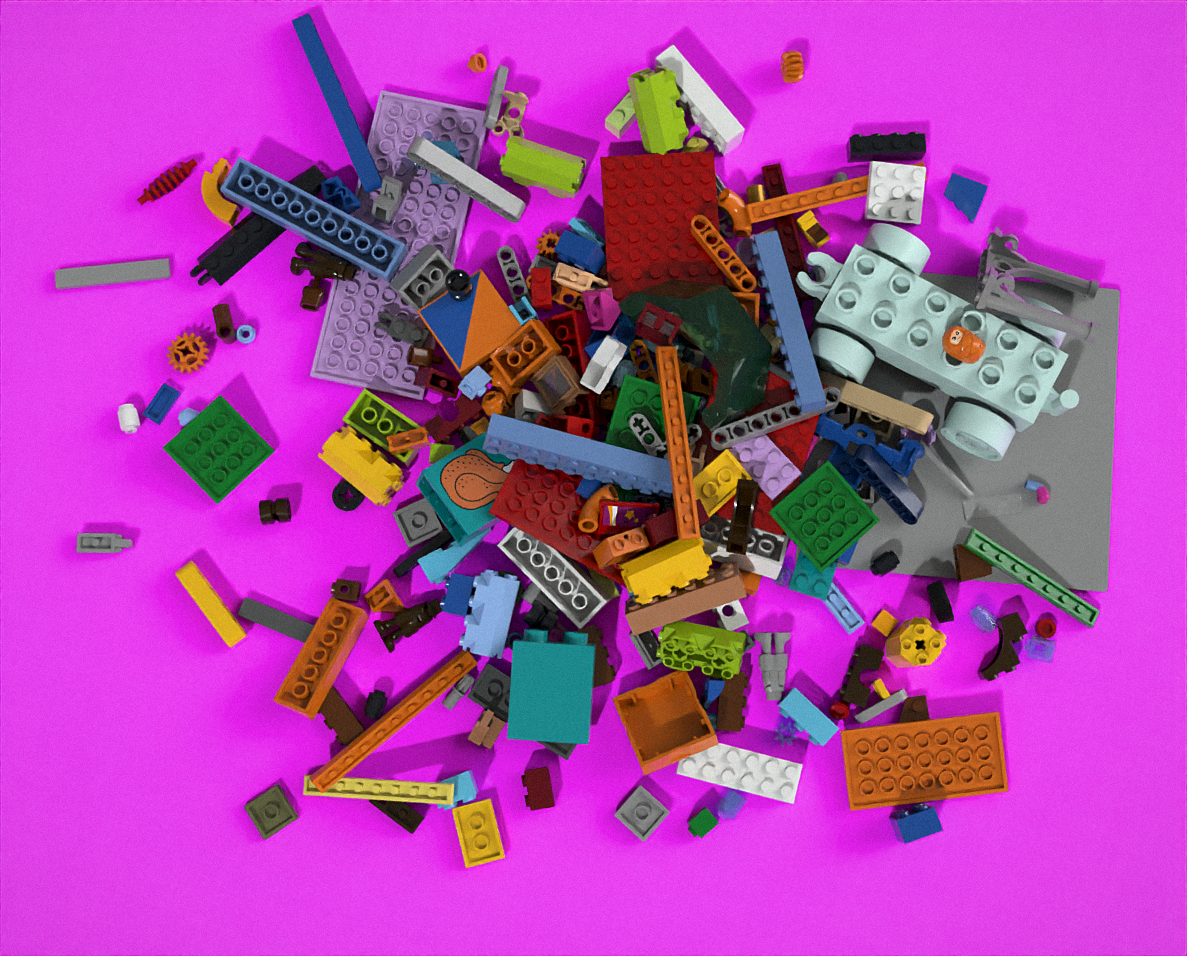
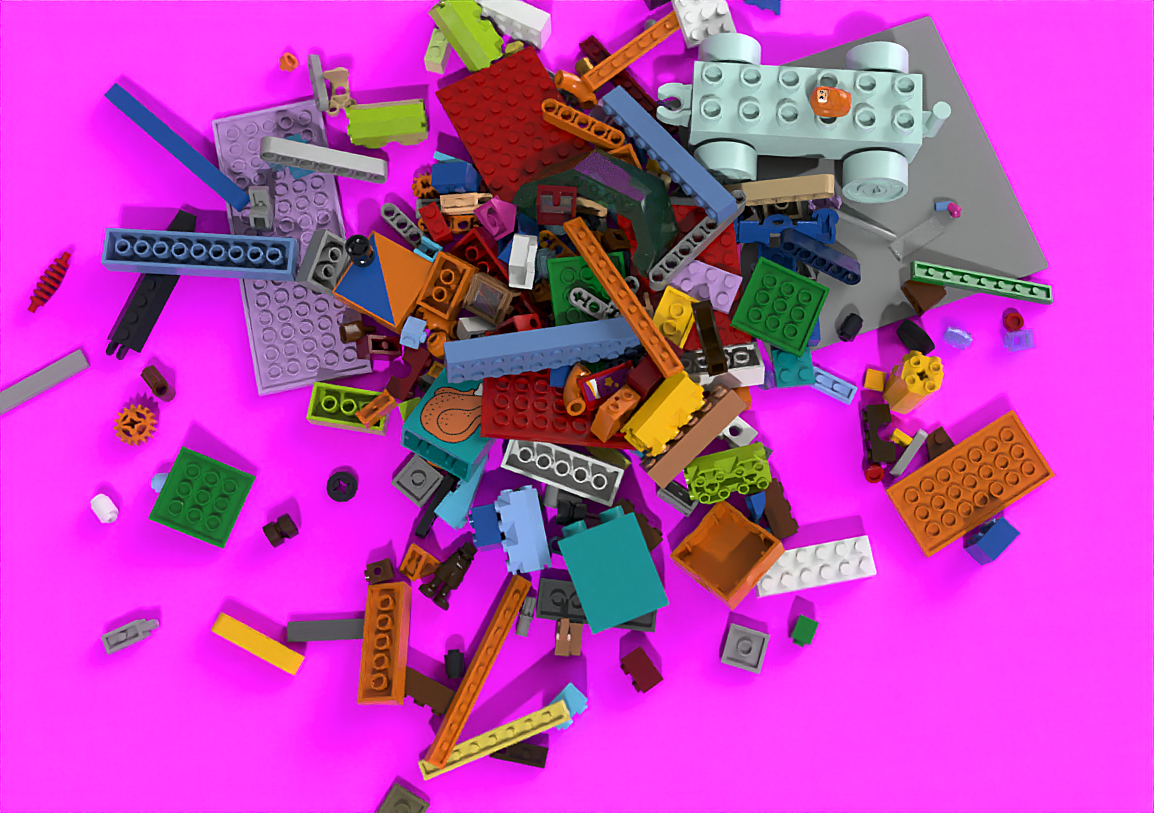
camera: 25 degrees left, 5 degrees down
(161, 403) = (130, 482): blue tile -> none
(210, 187) = (109, 283): light orange arch -> none
(240, 332) = (178, 381): light blue plate -> none
(312, 296) = (229, 324): reddish brown piece -> none
(324, 264) = (227, 291): dark brown piece -> none
(339, 195) = (214, 223): blue slope -> none
(362, 466) = (343, 452): yellow brick -> none
(403, 330) = (325, 316): dark grey hinge -> none
(478, 833) = (605, 738): yellow plate -> none
(730, 804) = (820, 602): clear light blue brick -> none
(773, 665) = (796, 461): light grey piece -> none
(780, 736) = (834, 520): clear light blue gear -> none
(807, 717) = (849, 493): medium azure brick -> none
(812, 230) = (648, 77): yellow leg -> none
(996, 285) = (824, 35): light grey arch -> none
(1009, 629) = (985, 337): dark brown arch -> none

